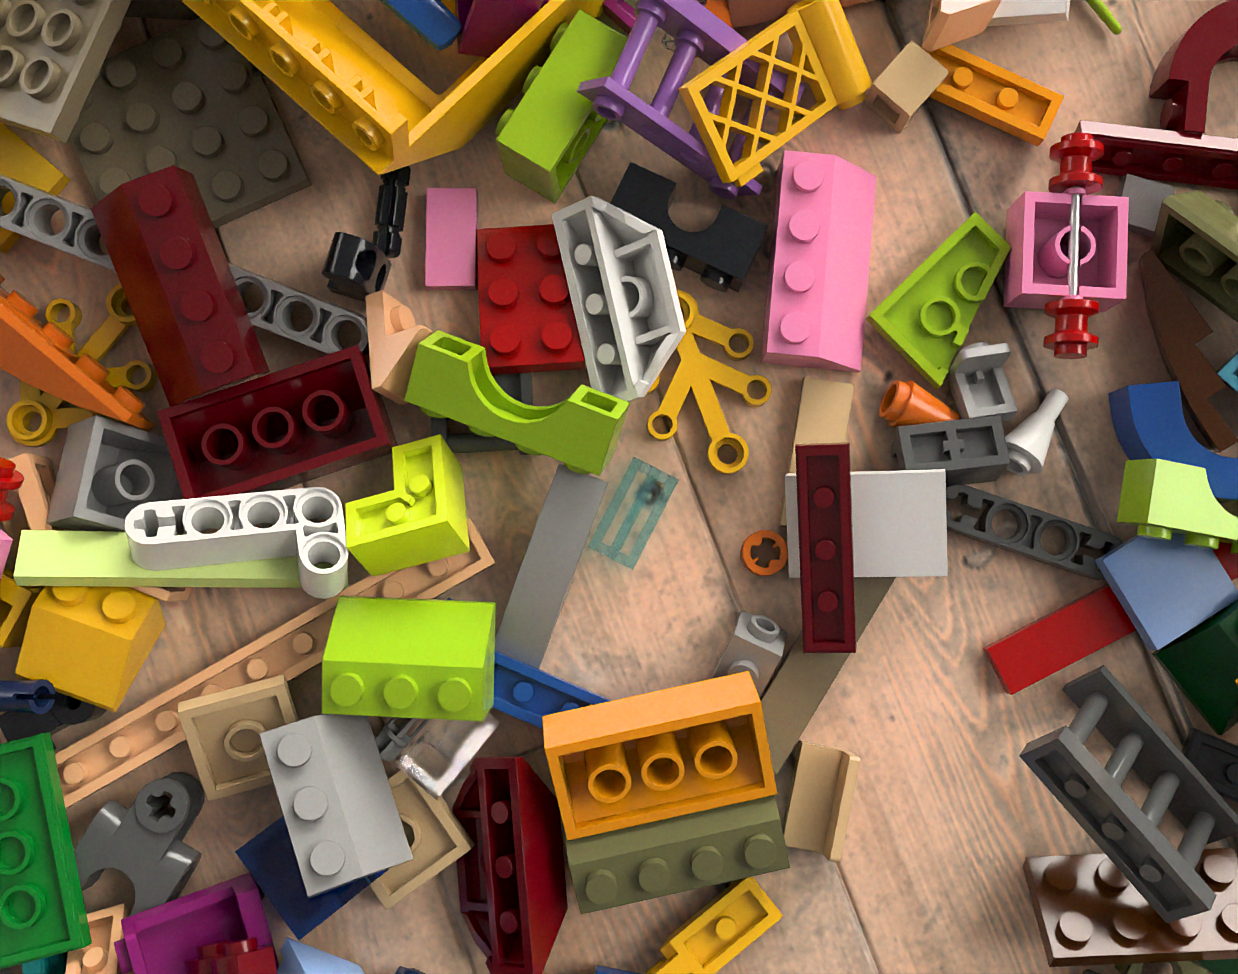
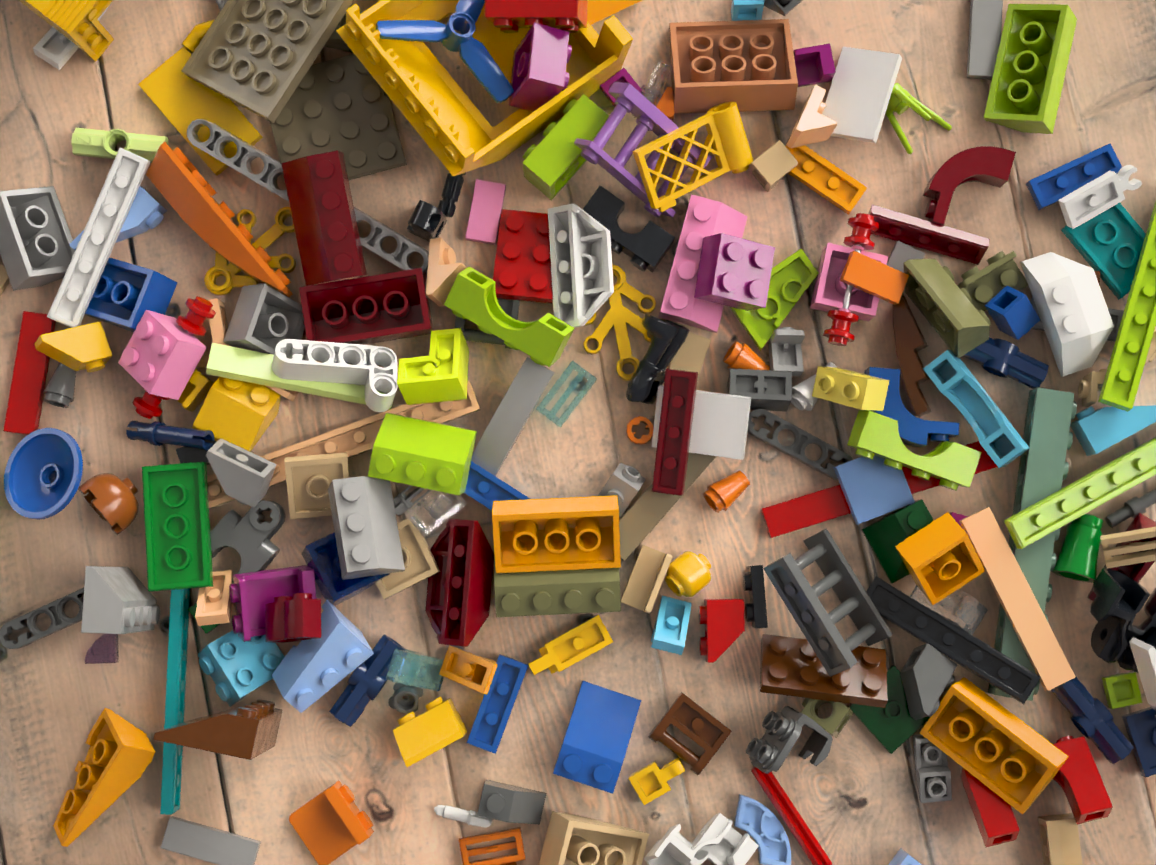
camera: 10 degrees right, 0 degrees up
(105, 741) = (240, 472): none -> light grey slope
(769, 451) = (664, 345): none -> black piece
(875, 874) = (671, 625): none -> medium azure slope
(881, 264) = (734, 272): none -> brick
(889, 780) = (688, 574): none -> yellow head
(923, 630) = (725, 491): none -> orange cone
(960, 858) = (723, 625): none -> red slope
(1011, 816) = (754, 583): none -> black plate
(1106, 426) = (850, 388): none -> light yellow brick
(1116, 235) = (874, 277): none -> orange tile

